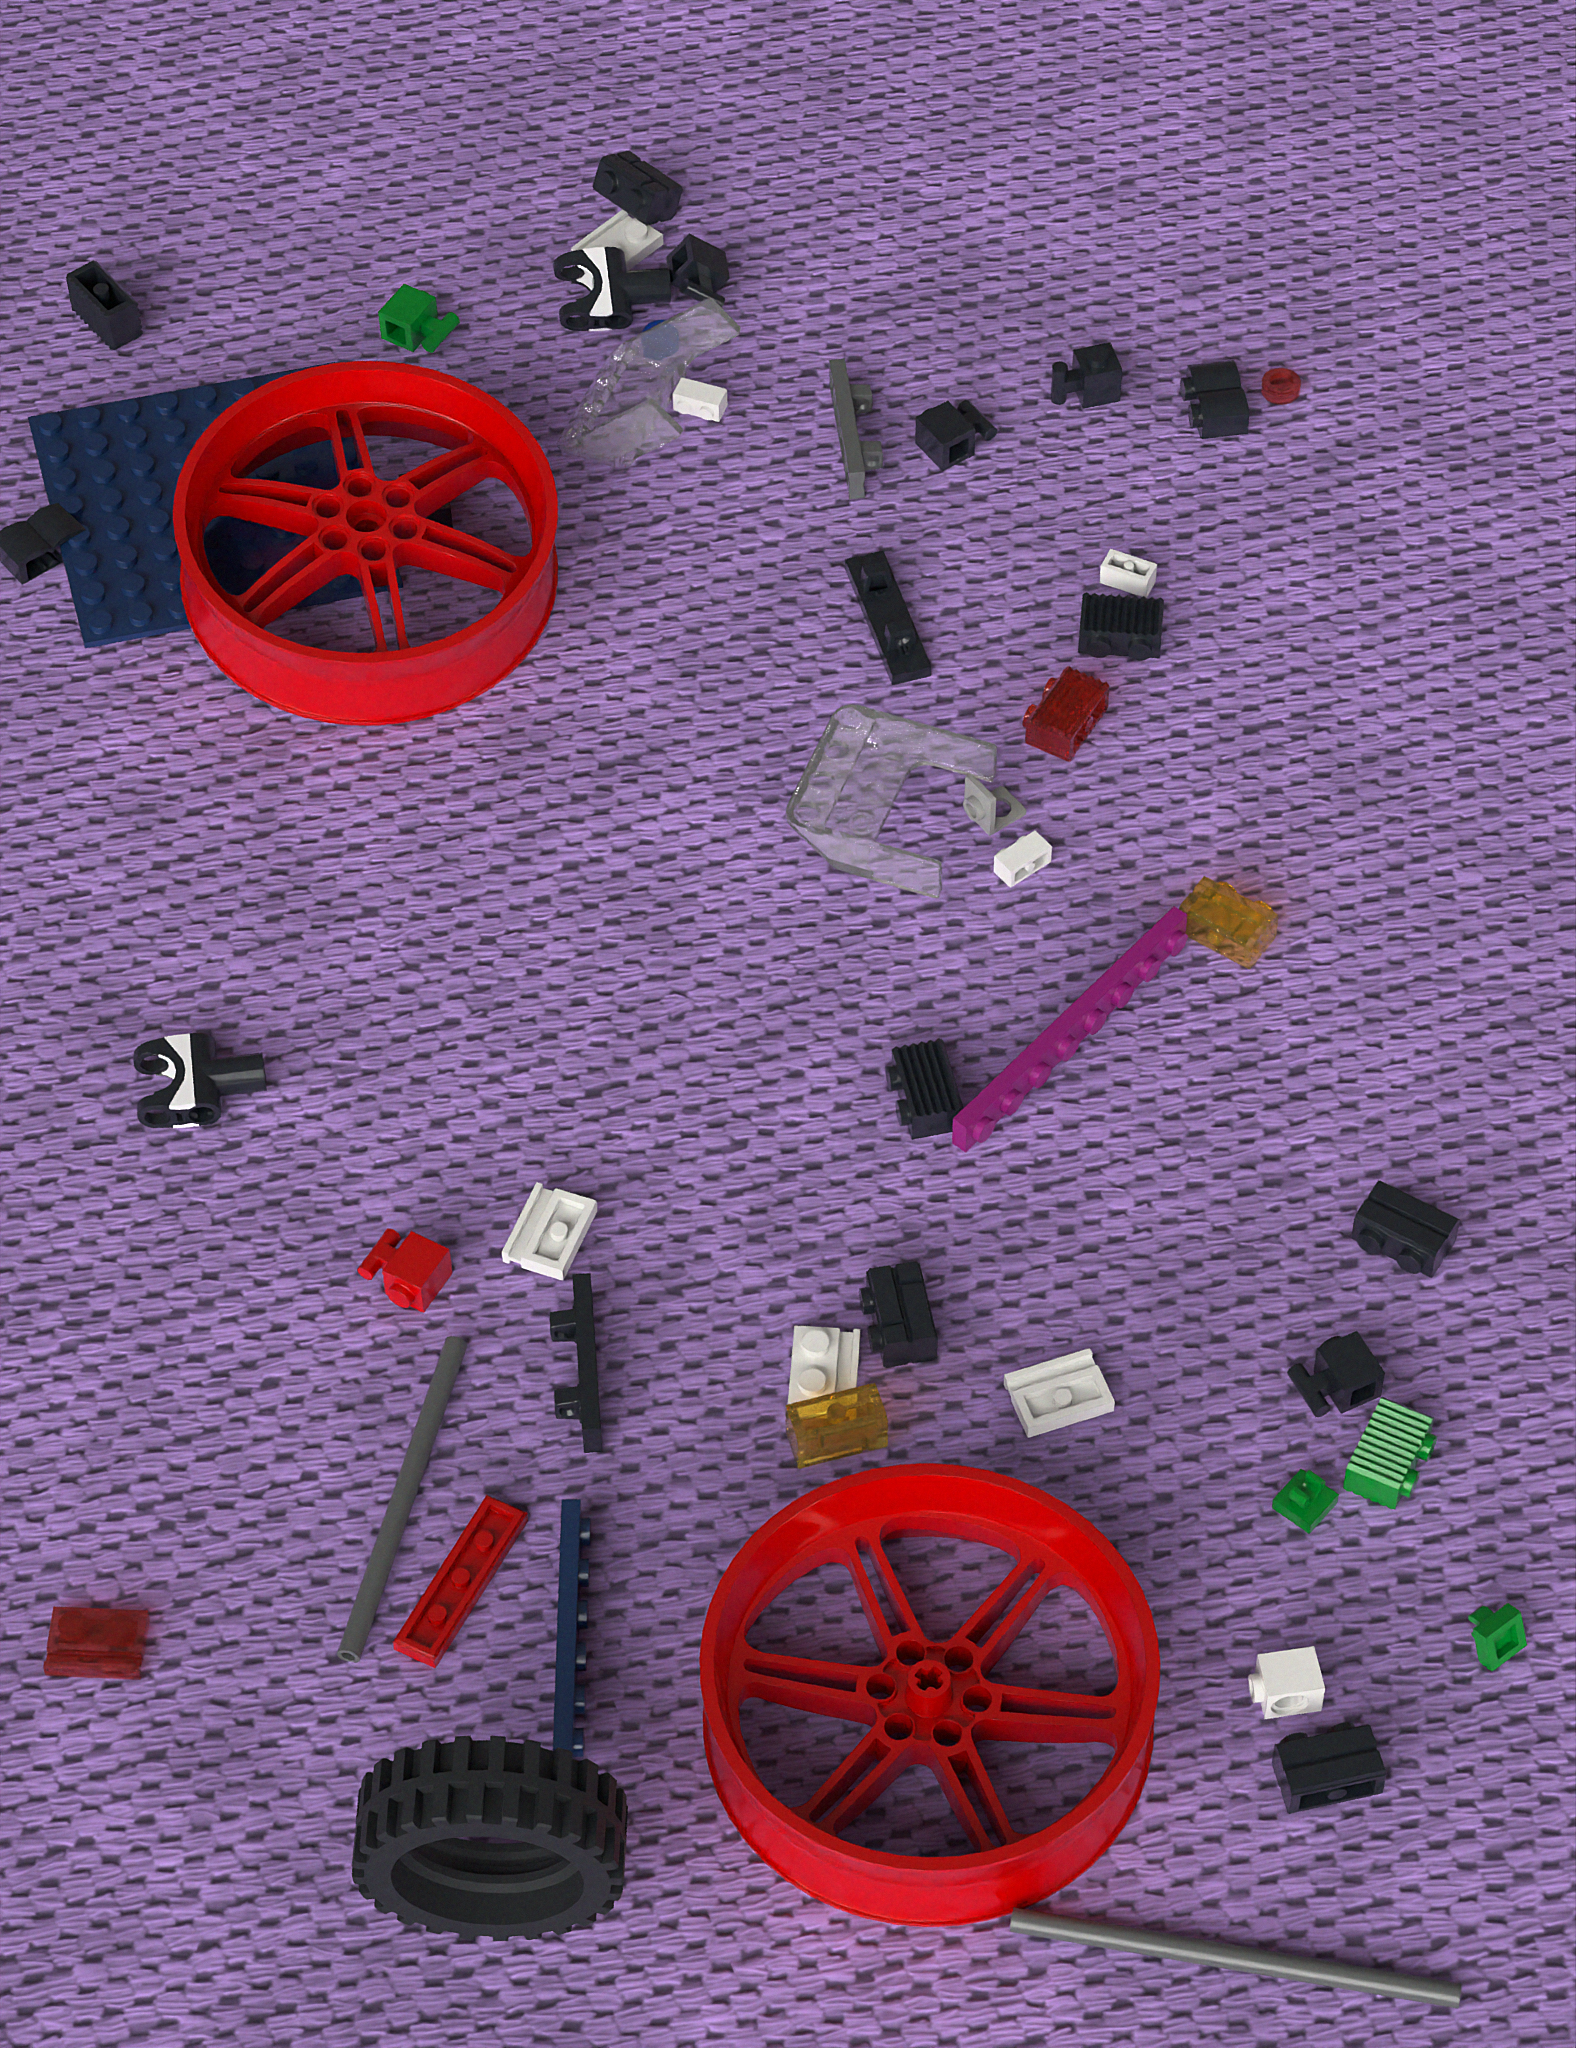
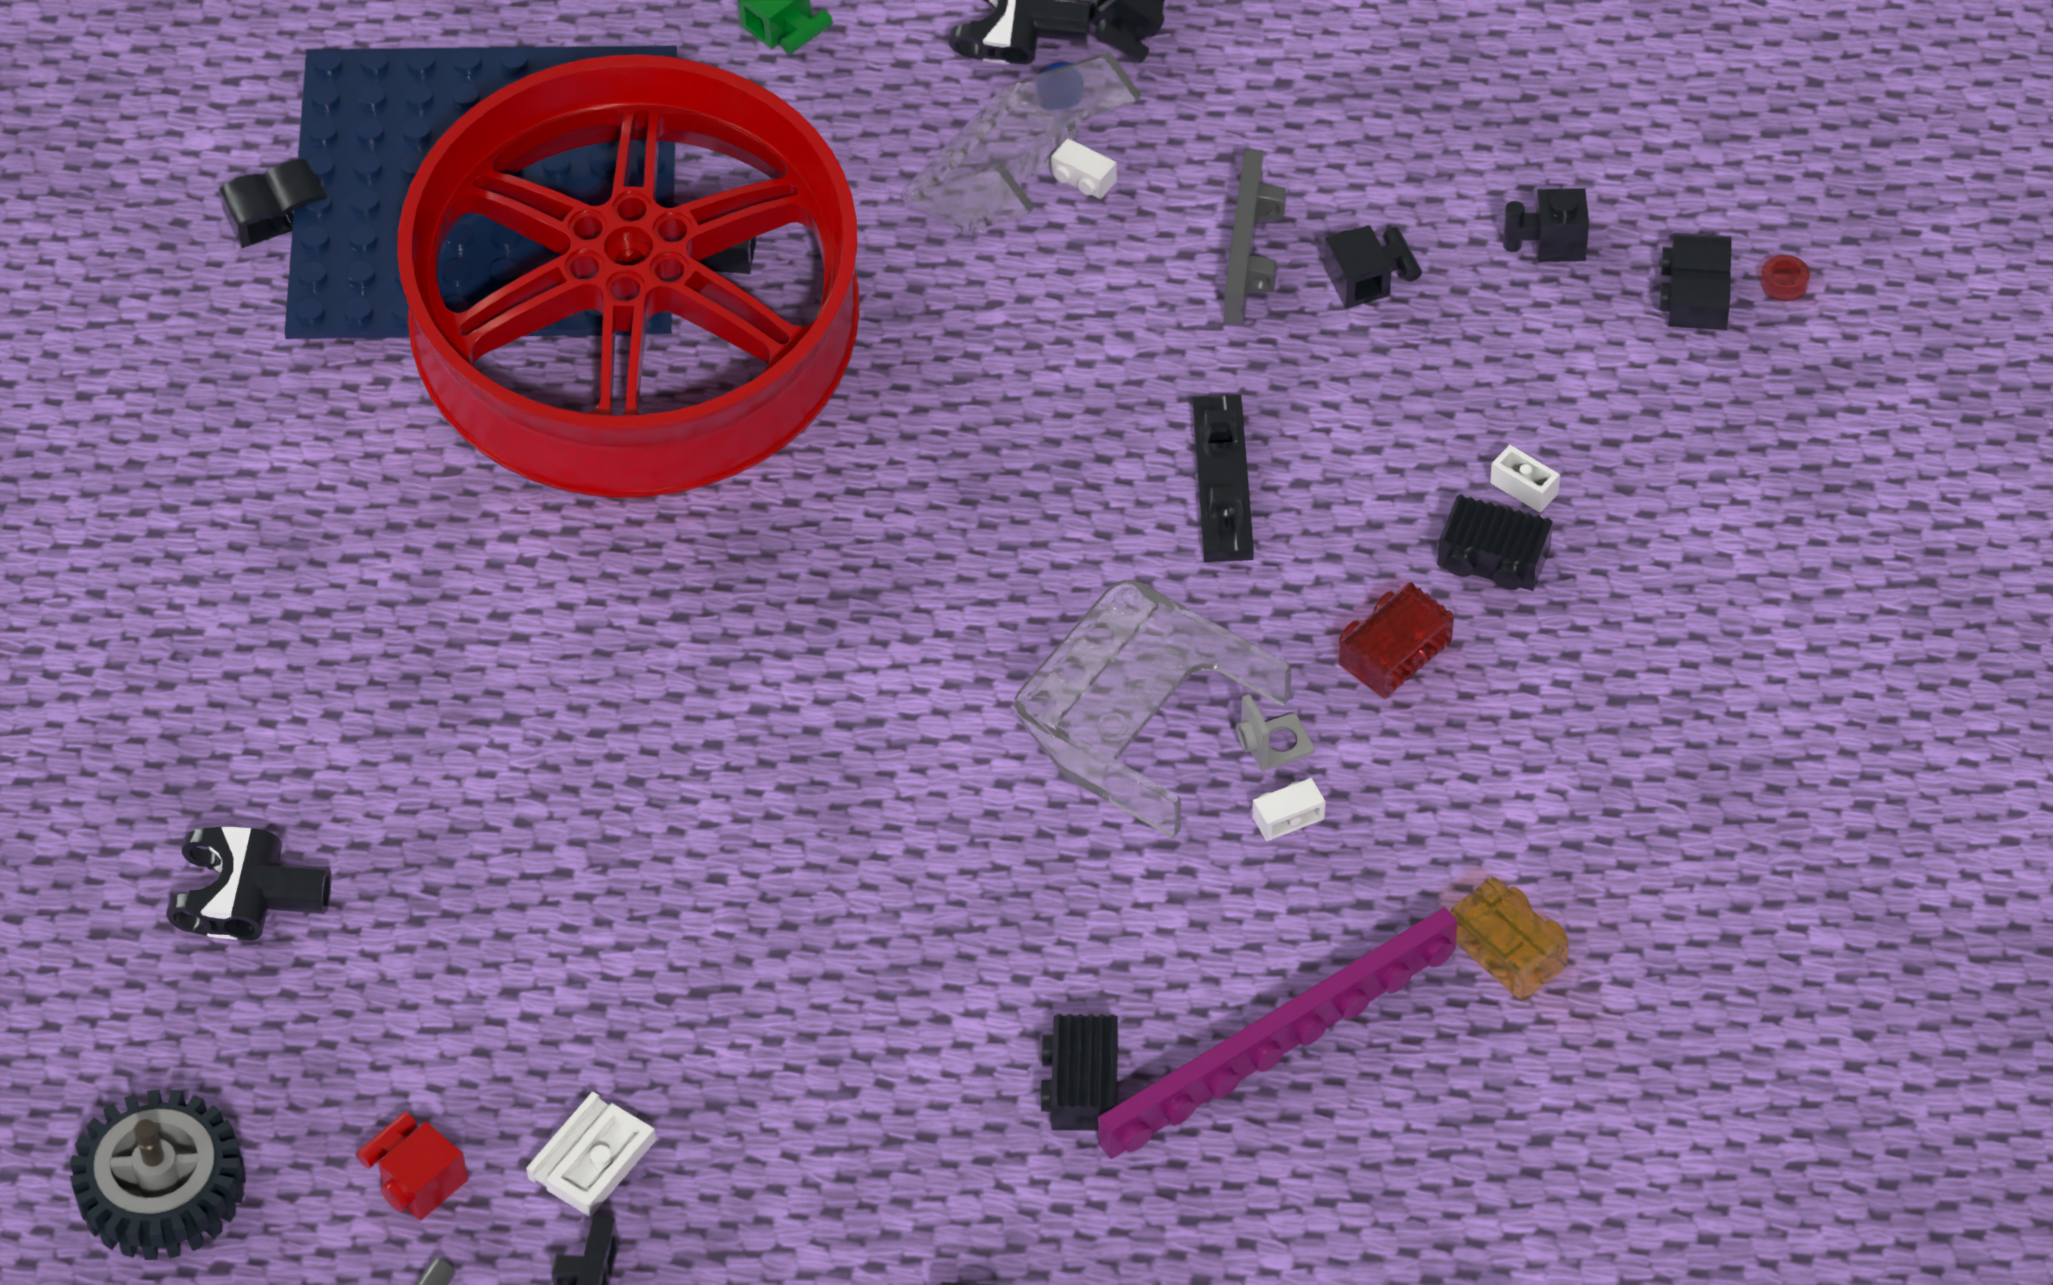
camera: 15 degrees right, 0 degrees up
(200, 1318) = (158, 1174): none -> wheel

